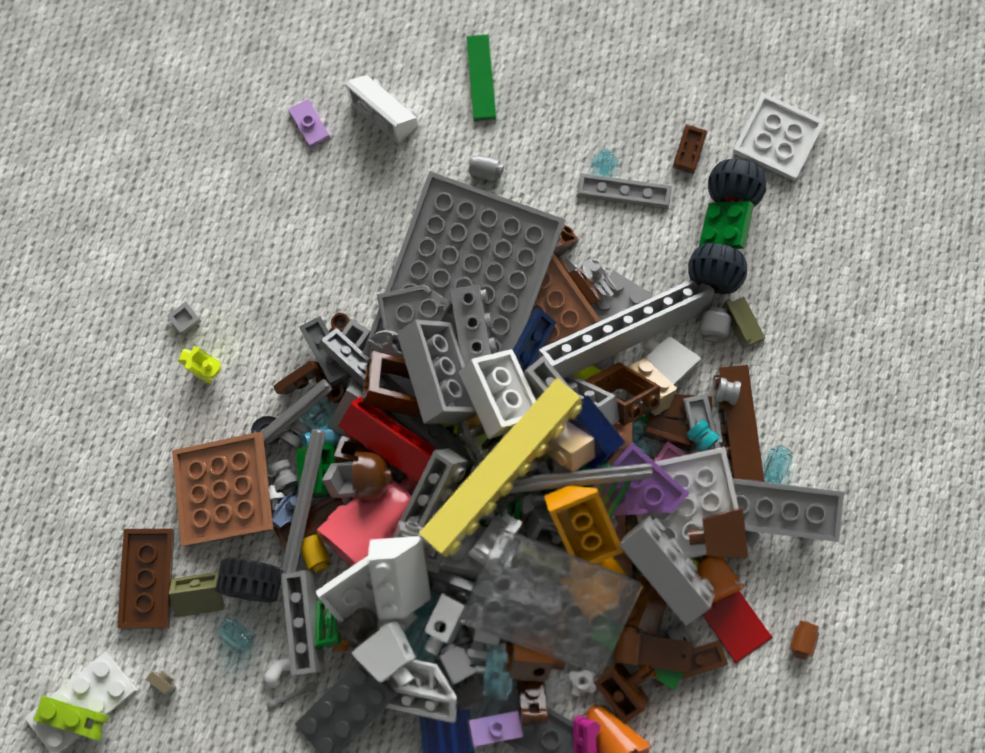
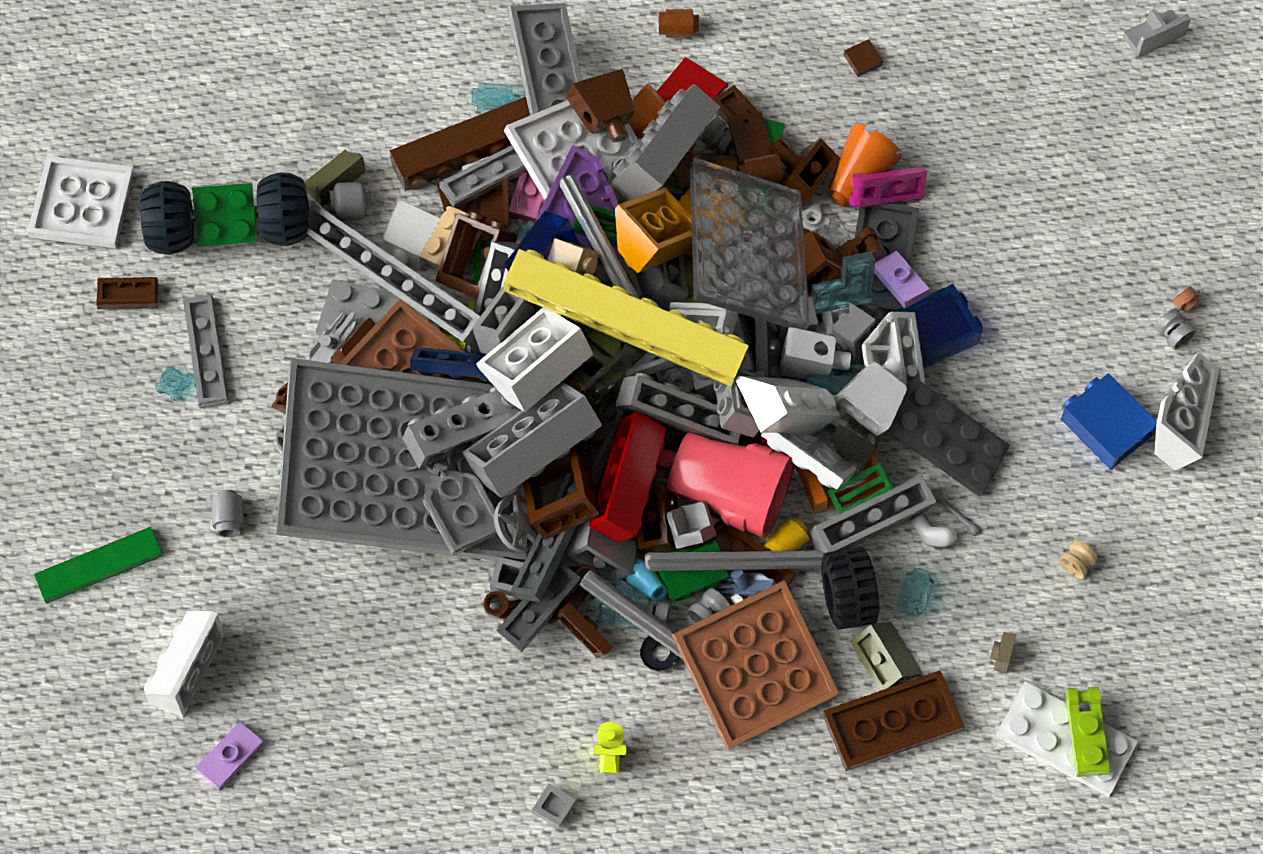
camera: 115 degrees left, 10 degrees down
(370, 476) = (680, 480): reddish brown cylinder -> none
(699, 432) = (495, 164): teal wheel -> none
(728, 391) = (432, 154): light grey wheel -> none

